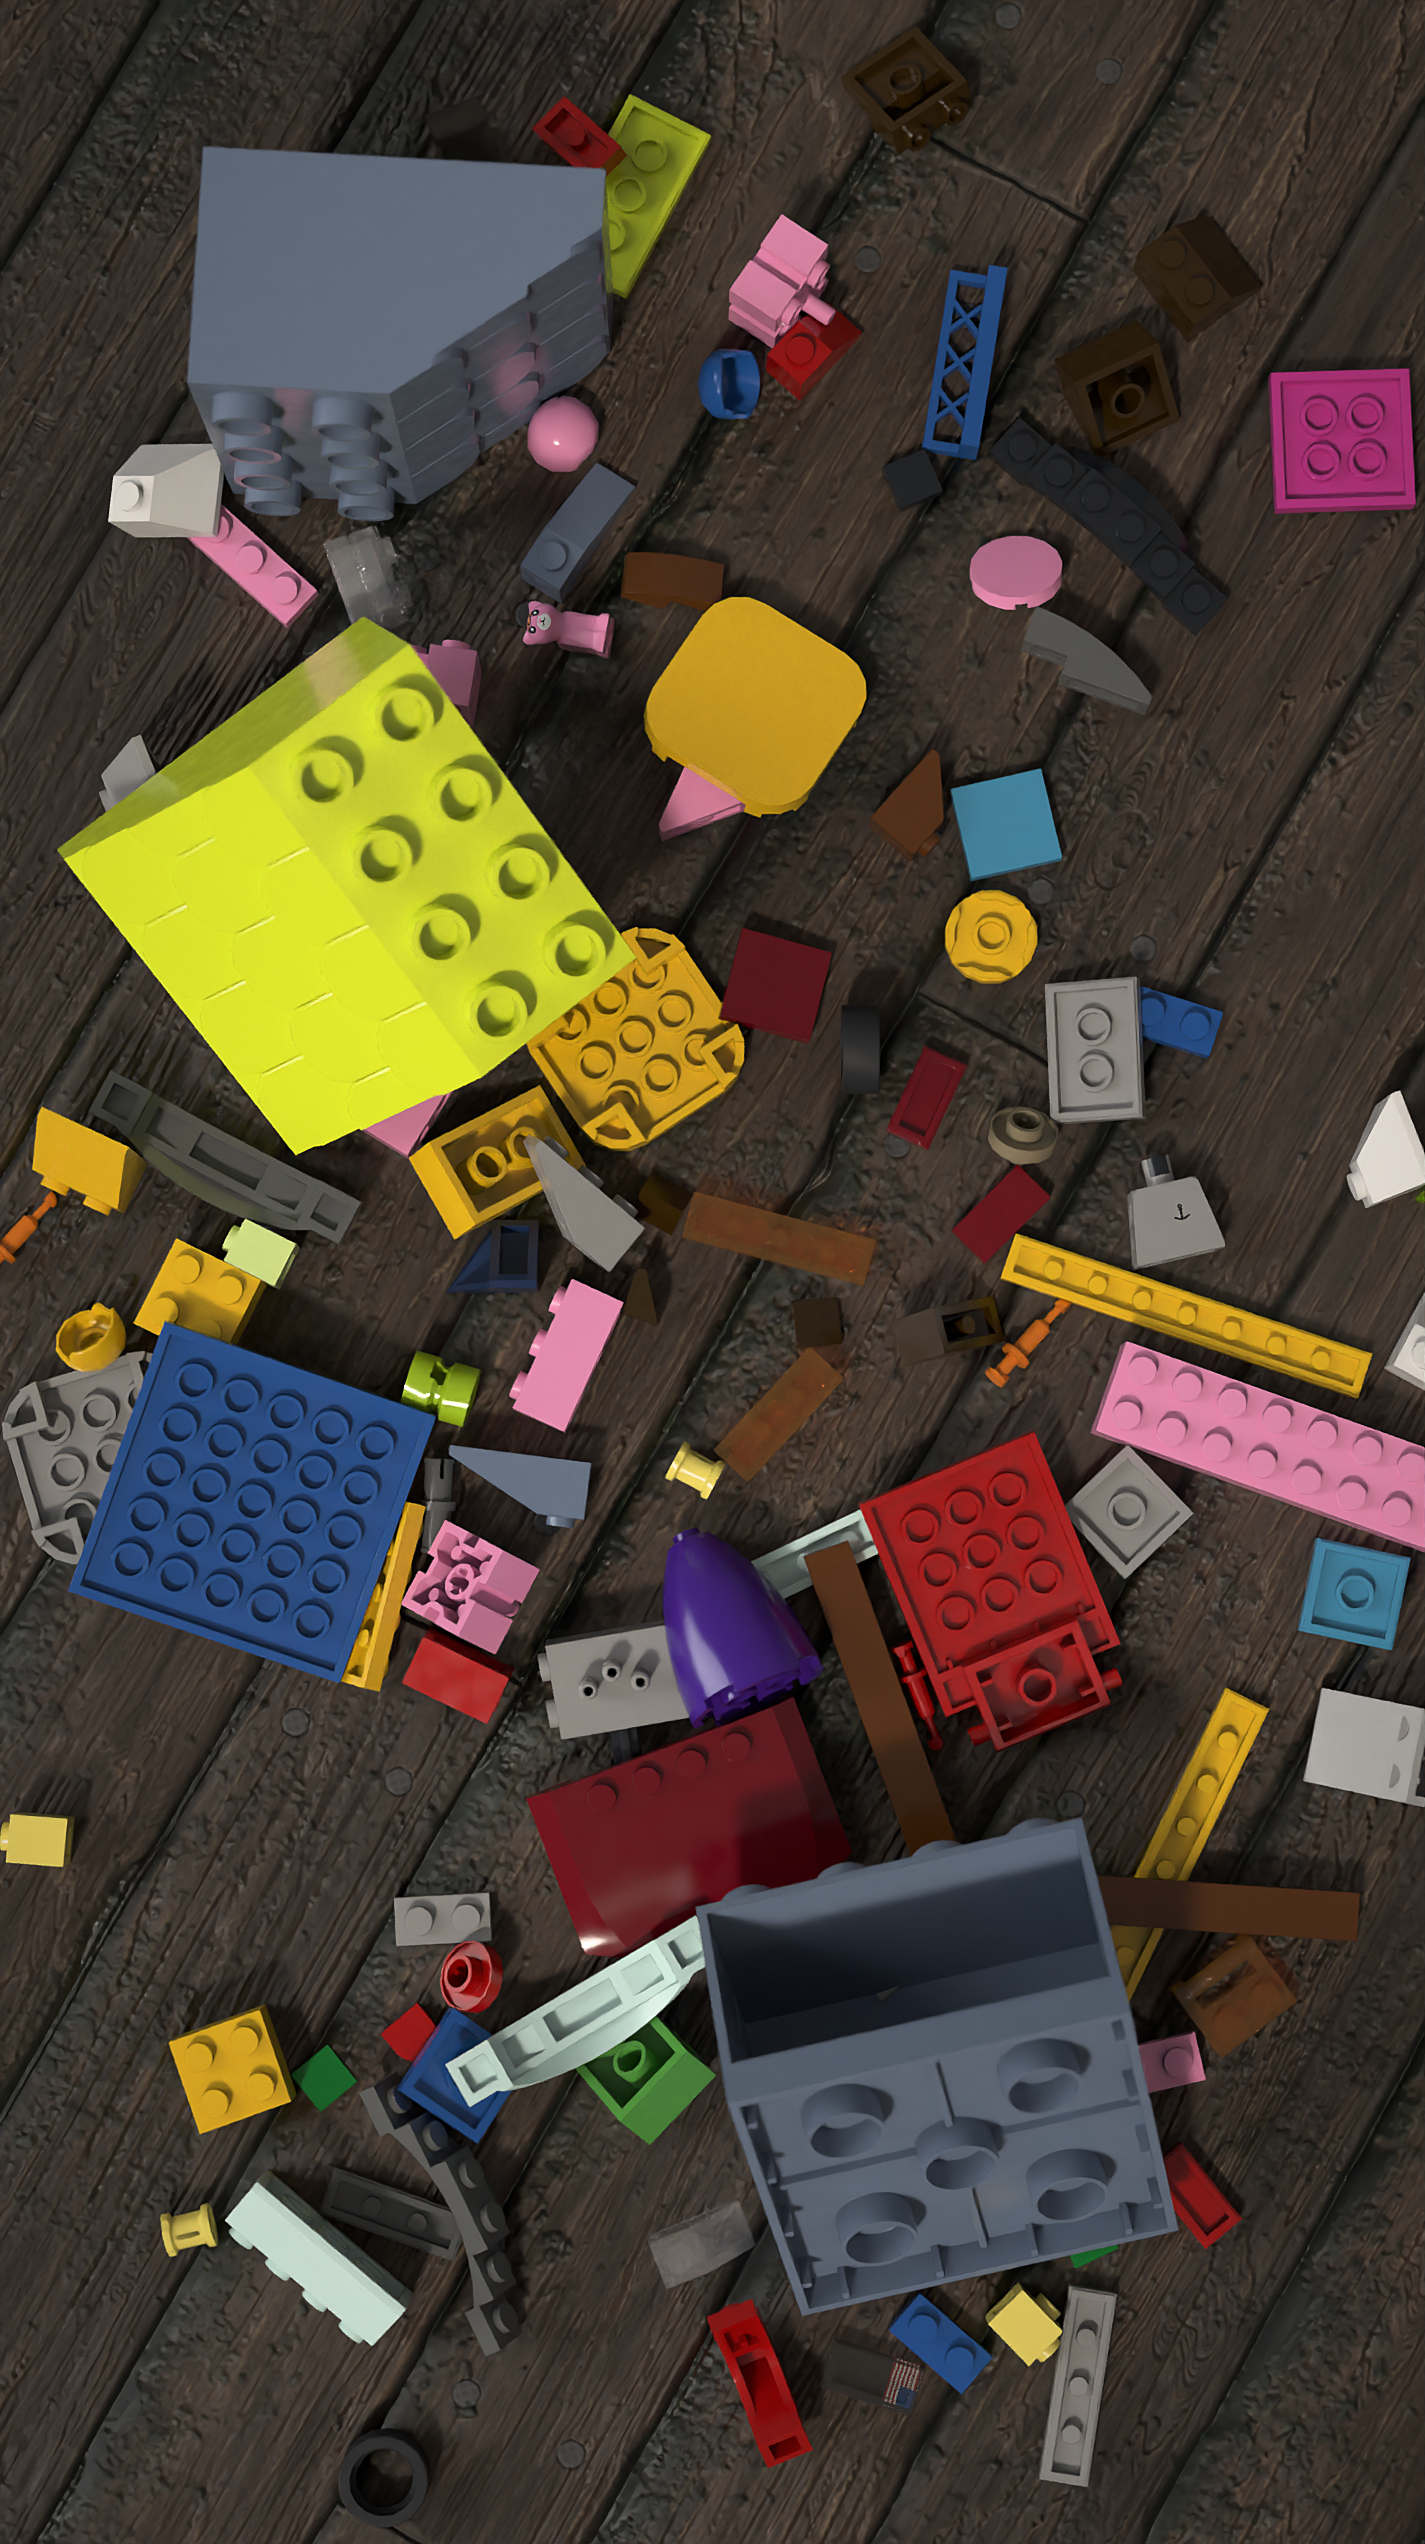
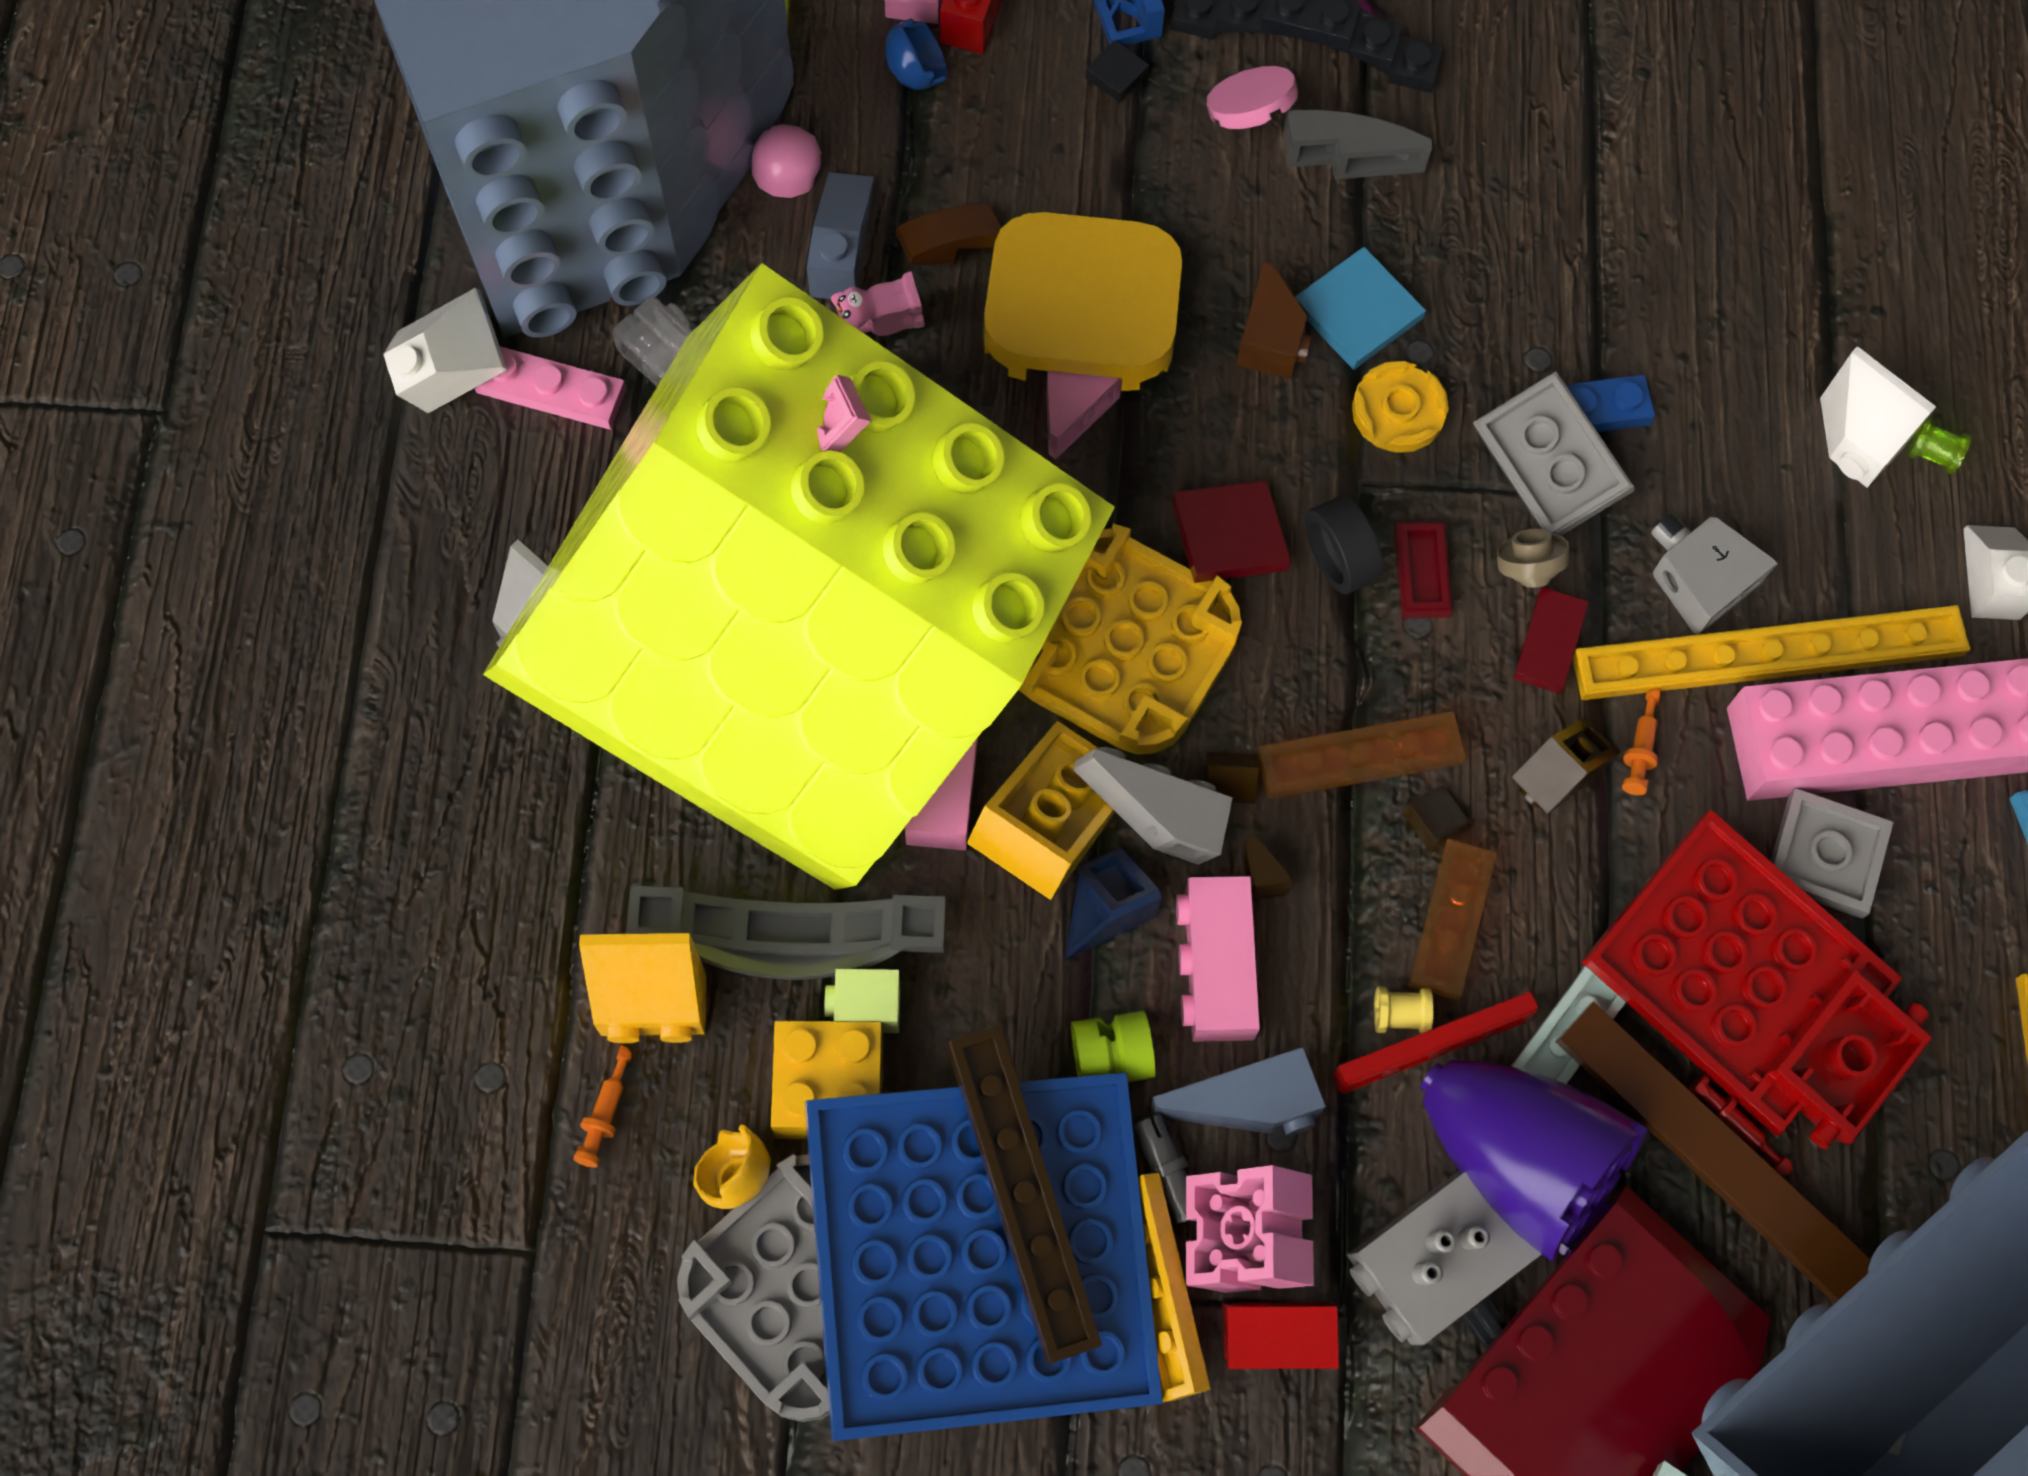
camera: 25 degrees left, 15 degrees down
(301, 1474) = (1023, 1195): none -> dark brown plate
(418, 805) = (843, 415): none -> bright pink tile
(705, 1509) = (1434, 1043): none -> red tile

